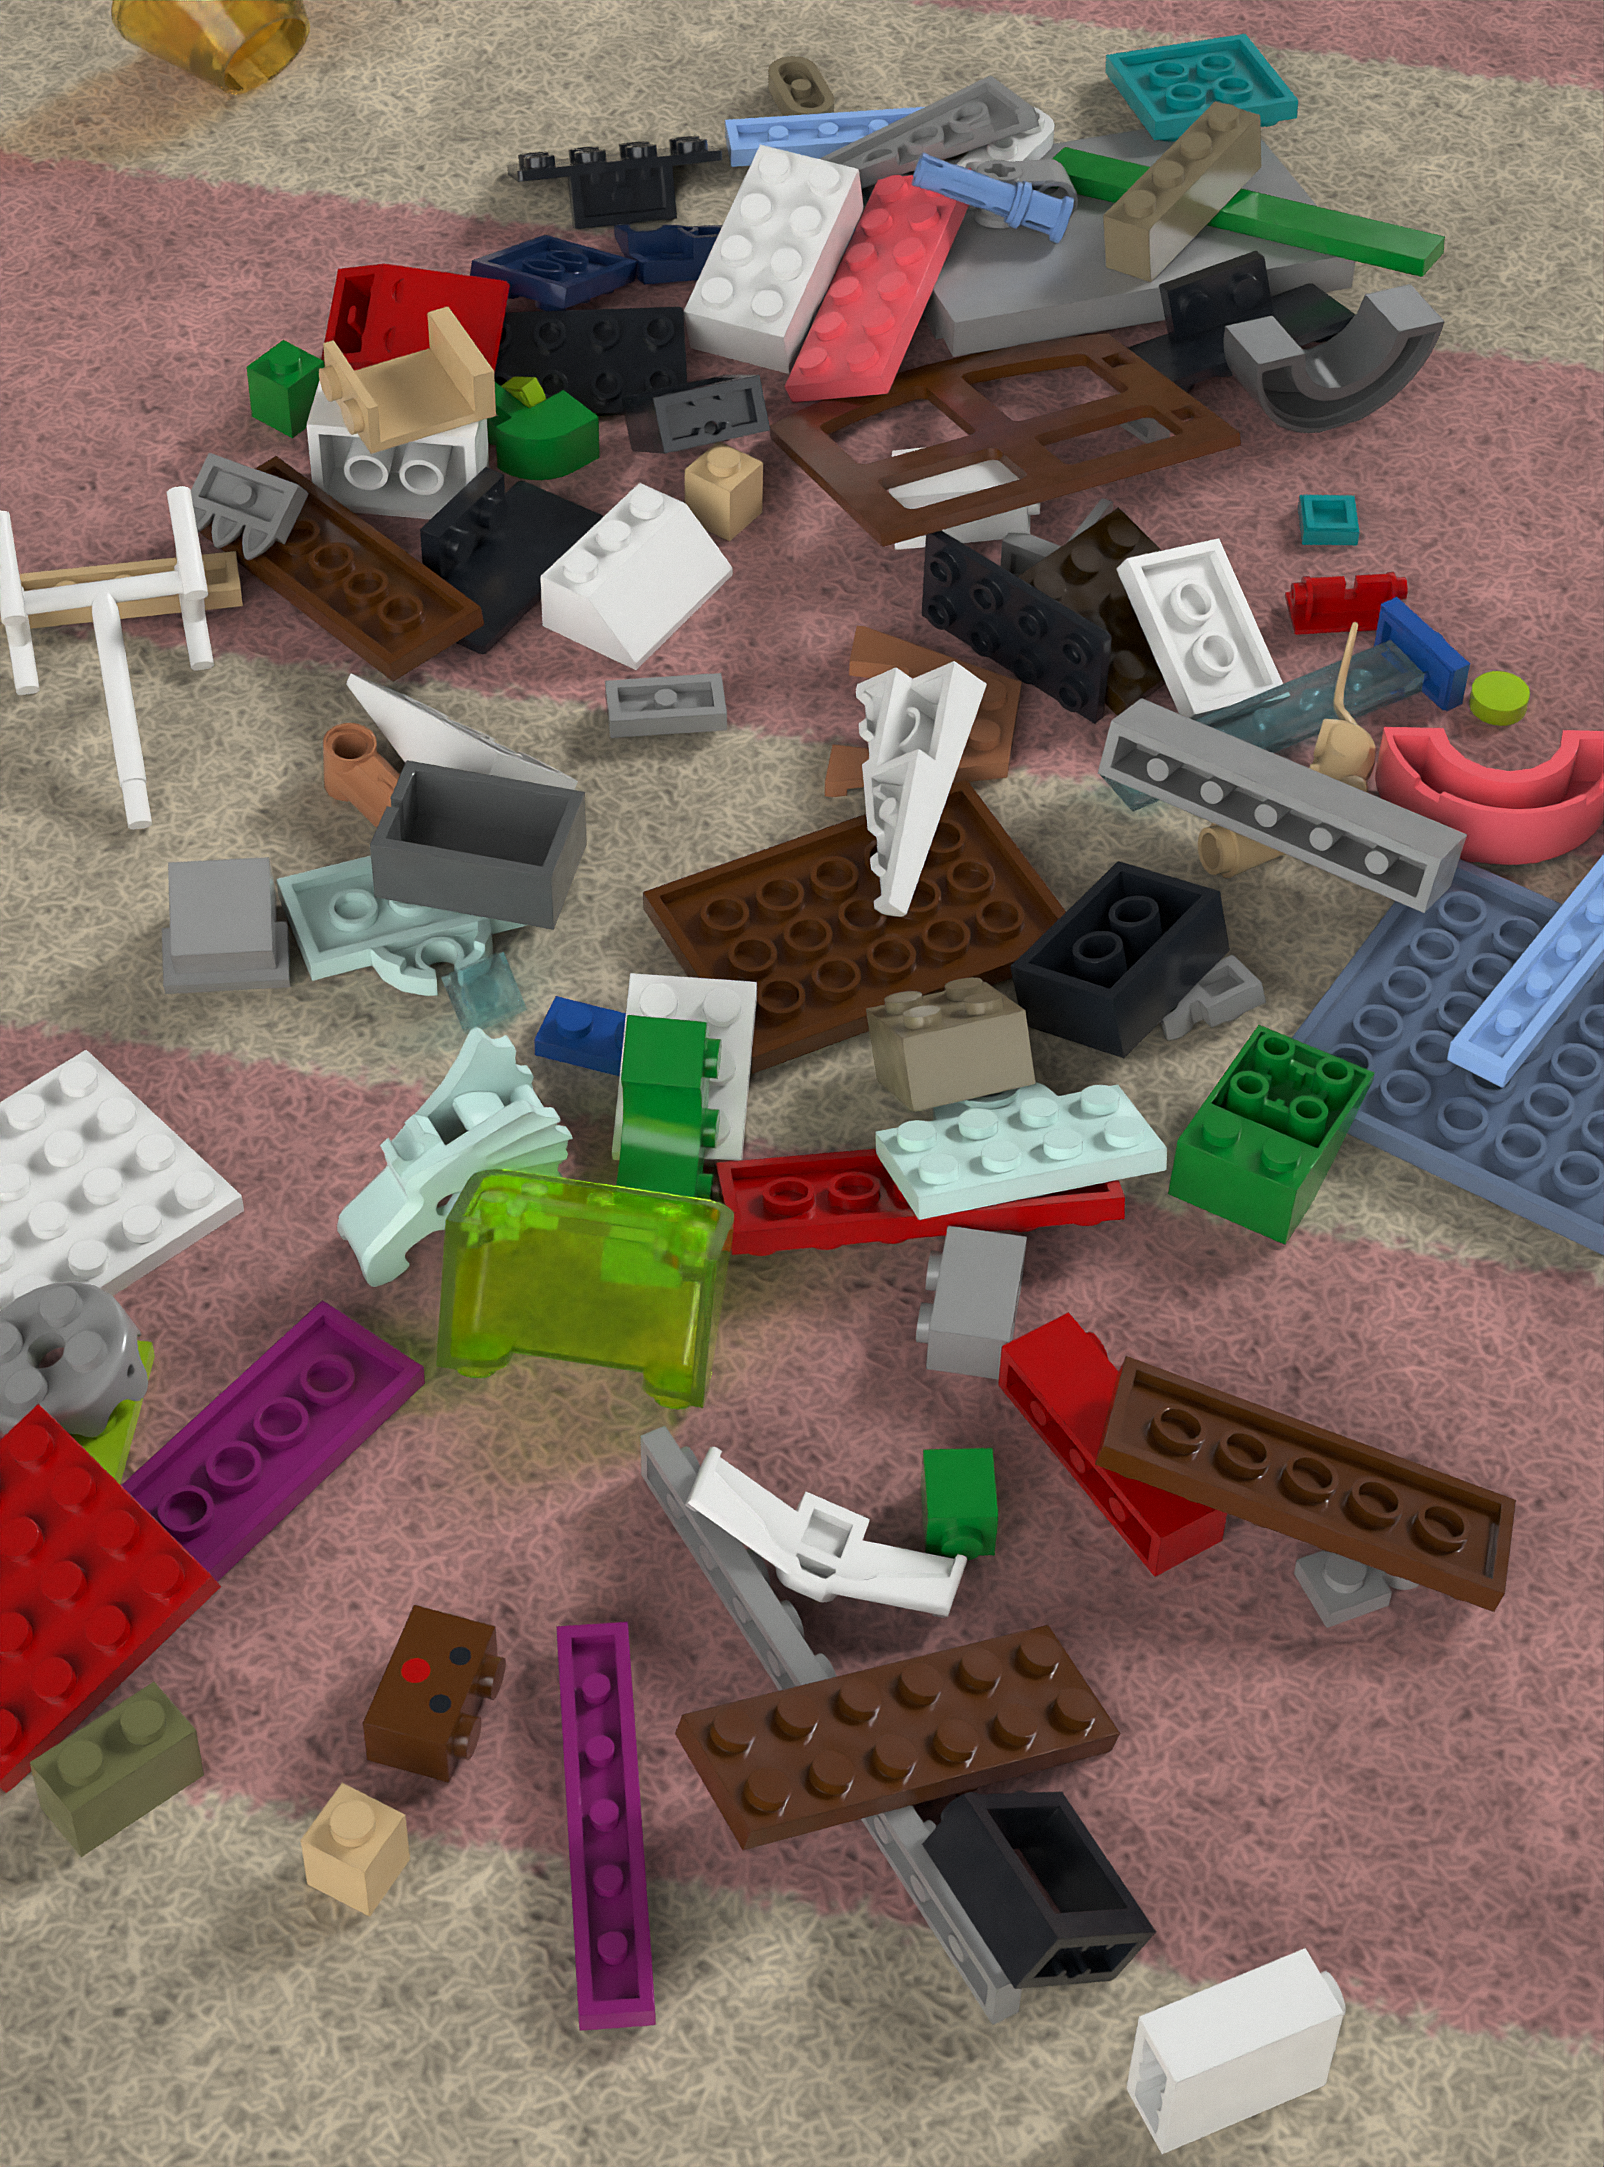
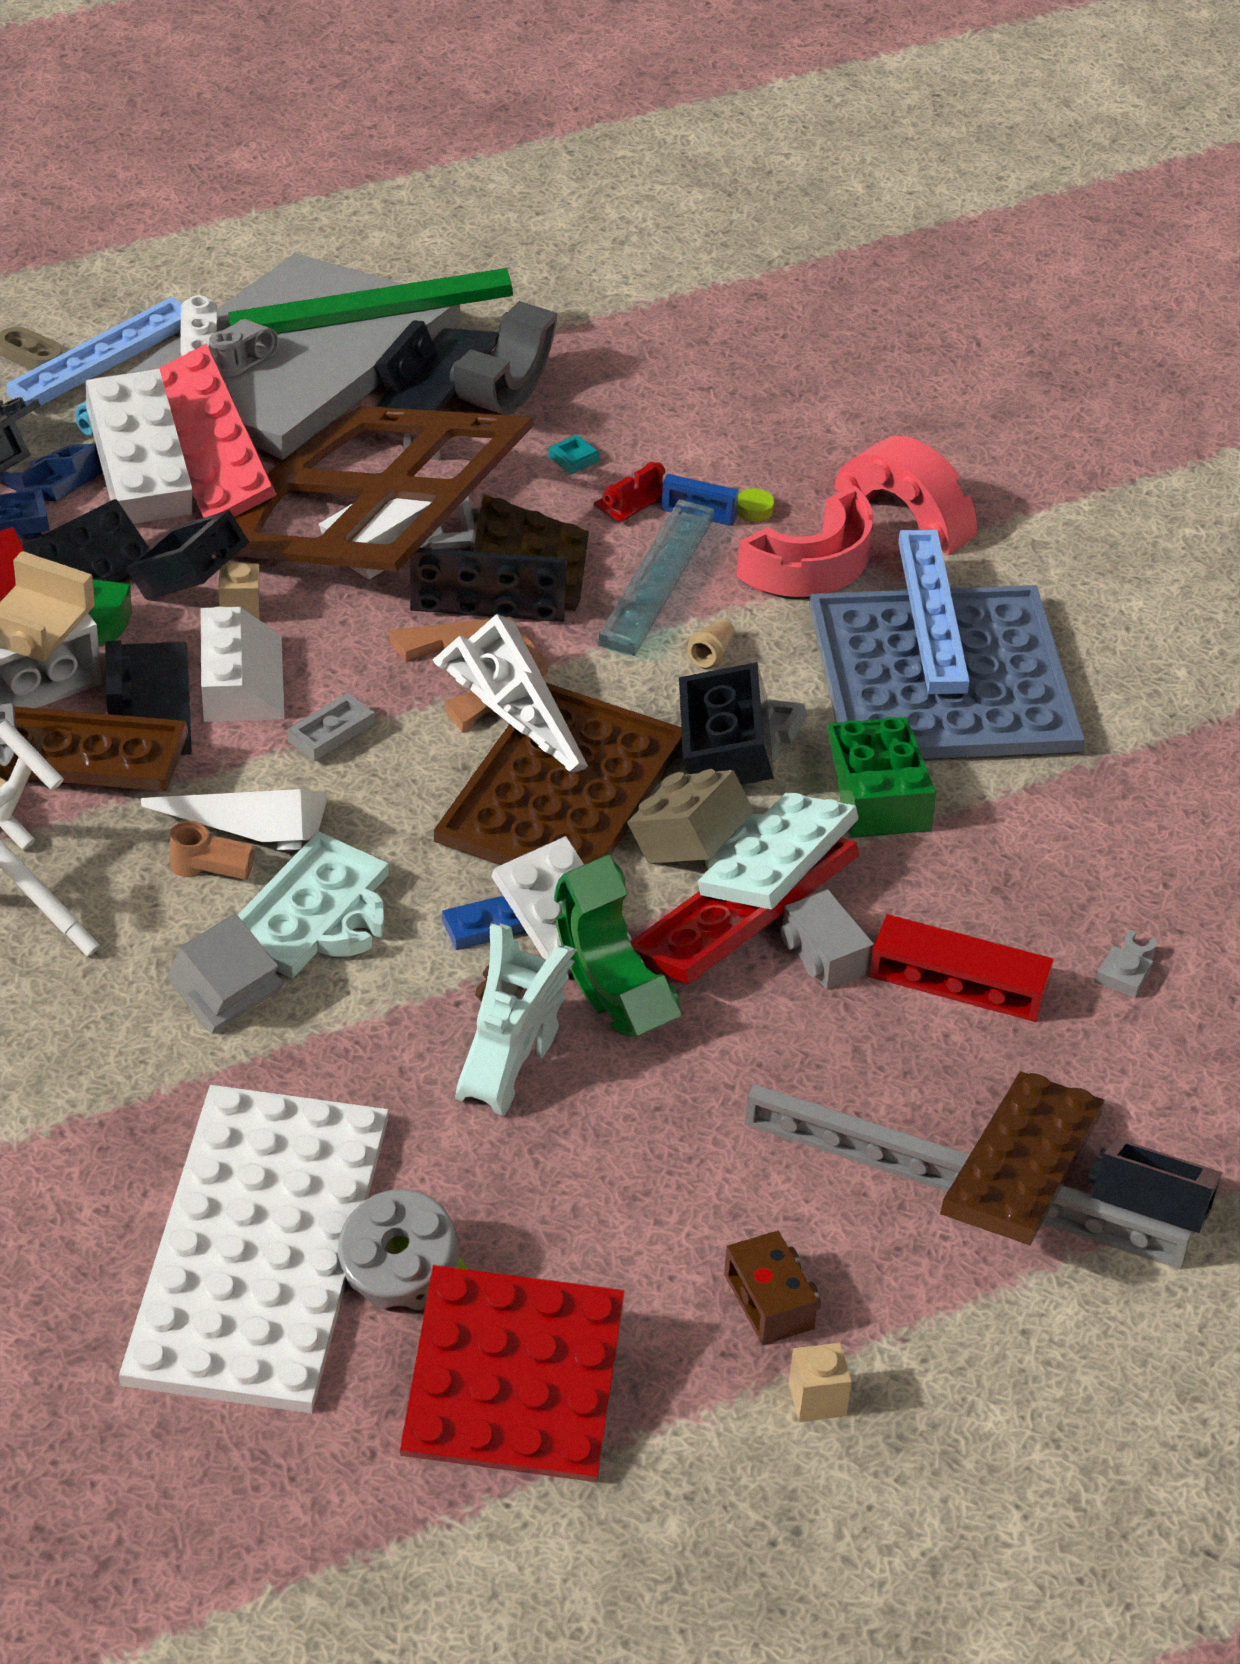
camera: 40 degrees left, 5 degrees down
(117, 1768) = (657, 1424): olive brick -> none
(273, 1436) = (545, 1207): magenta plate -> none
(479, 844) = (338, 845): dark grey piece -> none
(484, 992) = (403, 929): clear light blue plate -> none
(584, 1280) = (646, 1033): clear neon green windscreen -> none
(605, 1828) = (918, 1294): magenta plate -> none
(822, 1544) = (883, 1094): white plate -> none
(942, 129) = (155, 330): light grey wing -> none
(959, 1502) = (922, 1039): green brick -> none
(1015, 203) = (252, 352): medium blue pin -> none
(1179, 82) = (263, 246): teal plate -> none
(1182, 191) = (344, 304): dark tan brick -> none
(1199, 627) = (587, 539): white plate -> none
(1282, 804) = (727, 606): light grey brick -> none
(1308, 1483) = (1078, 928): reddish brown plate -> none
(1343, 747) = (718, 573): tan animal -> none

